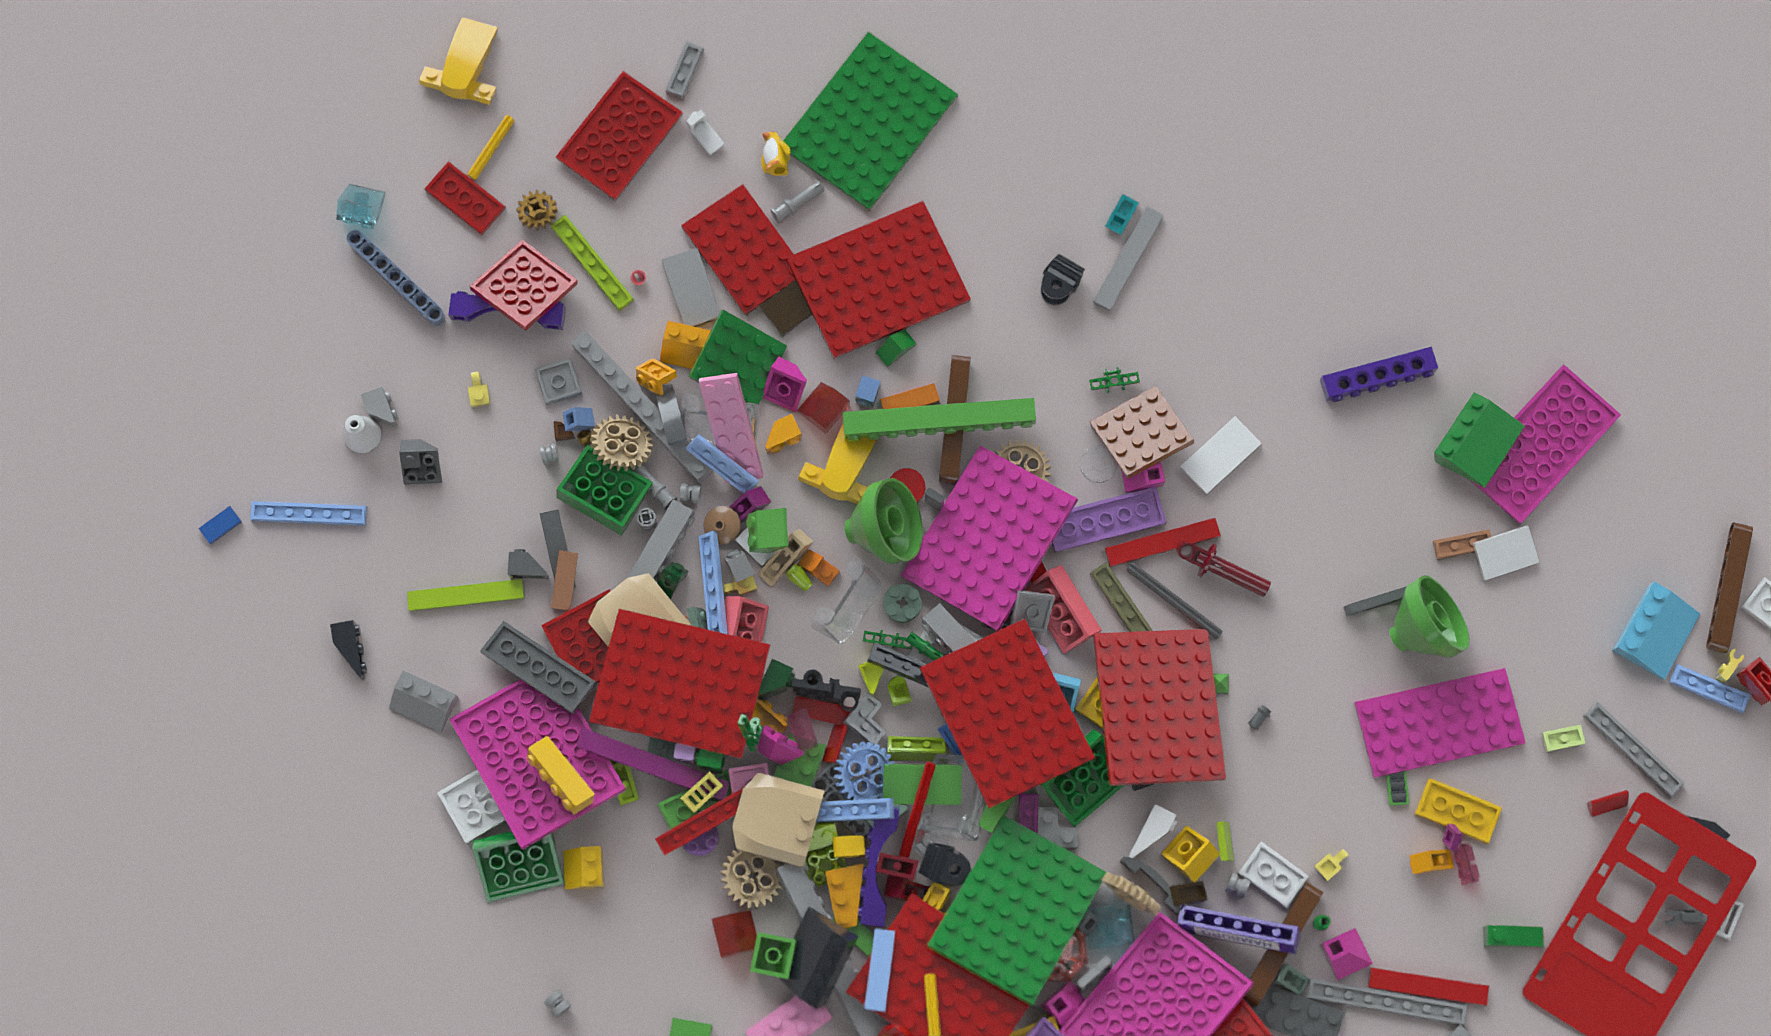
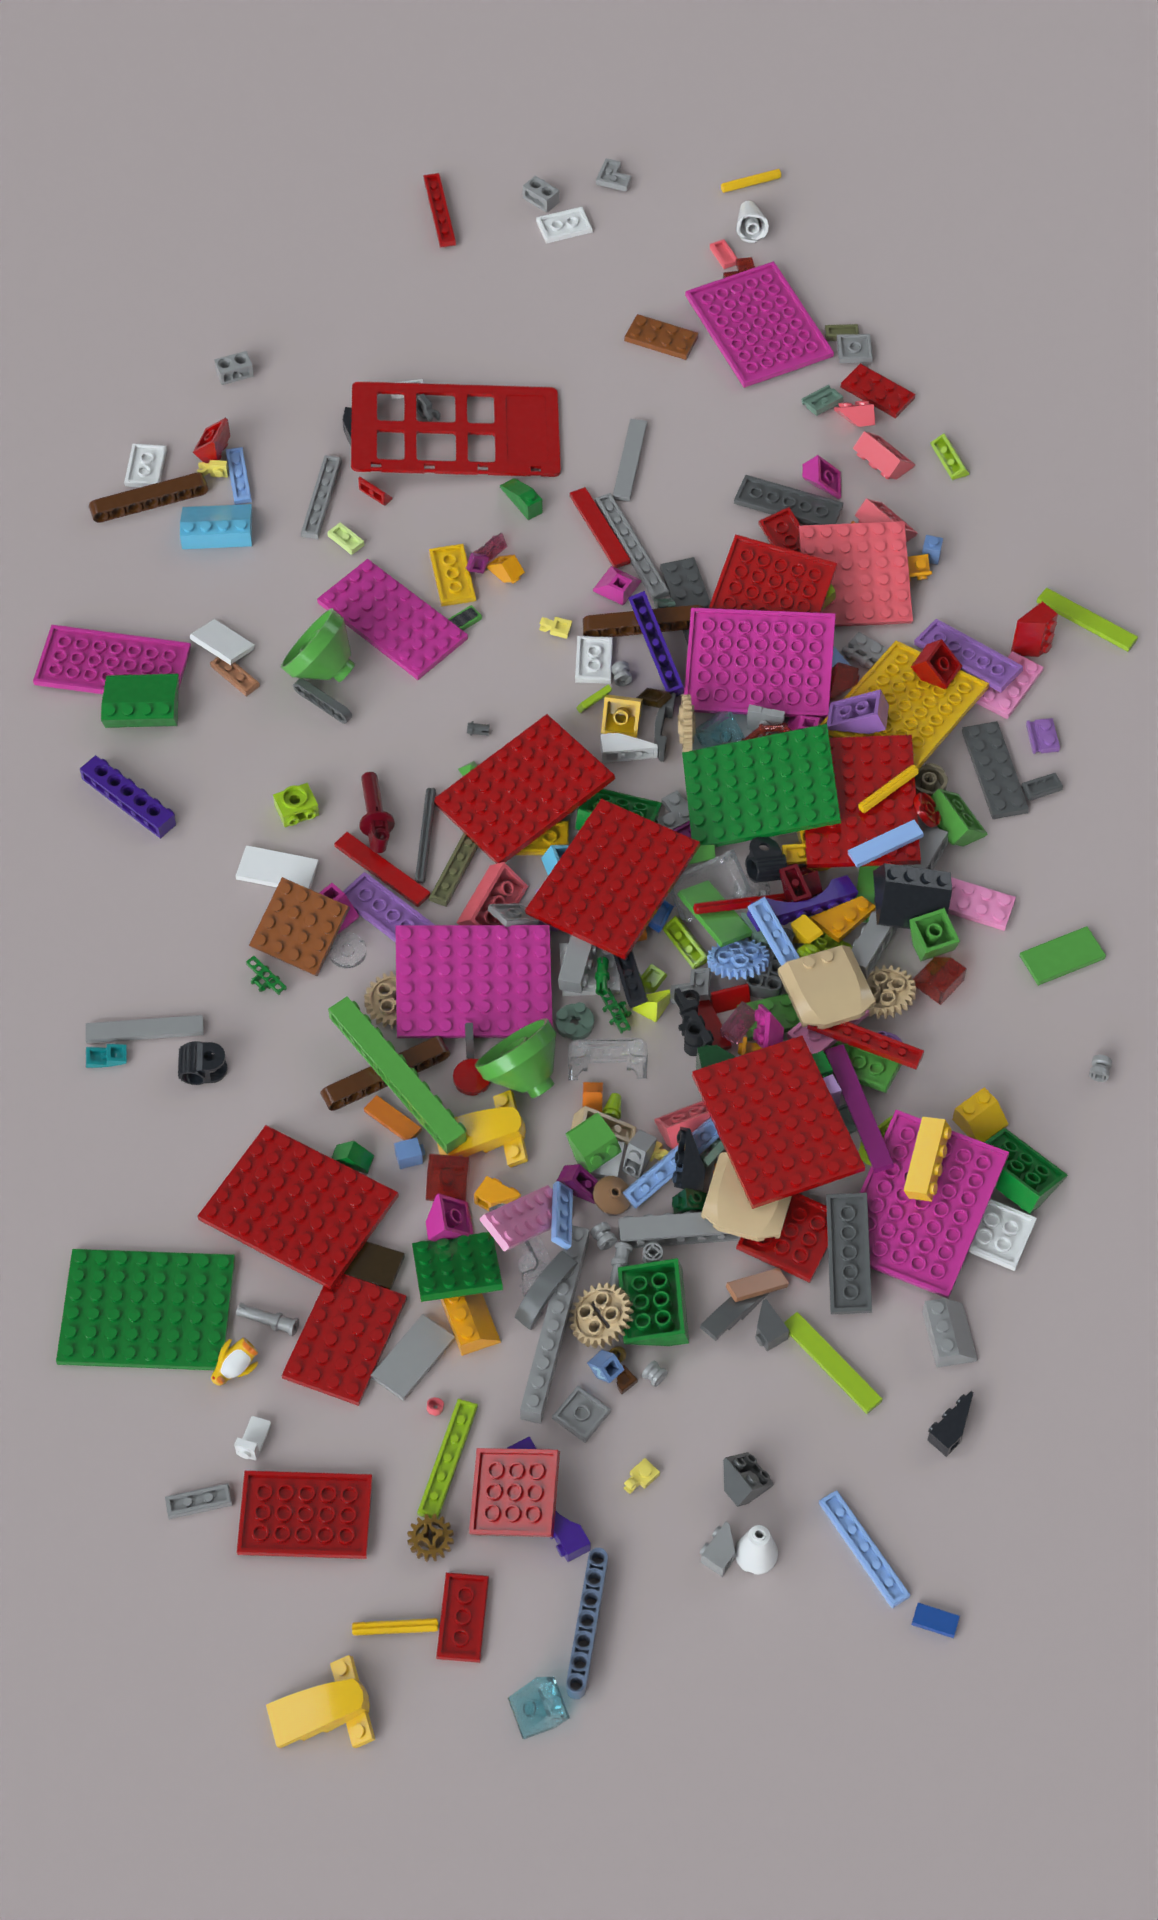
camera: 125 degrees left, 20 degrees down
(653, 375) = (519, 1327): light orange bracket -> none
(689, 803) = (844, 1051): light yellow slope -> none
(695, 593) = (689, 1166): none -> black slope
(751, 731) = (774, 1039): green piece -> none
(1268, 516) = (294, 813): none -> lime brick
(1325, 920) = (608, 603): green pin -> none

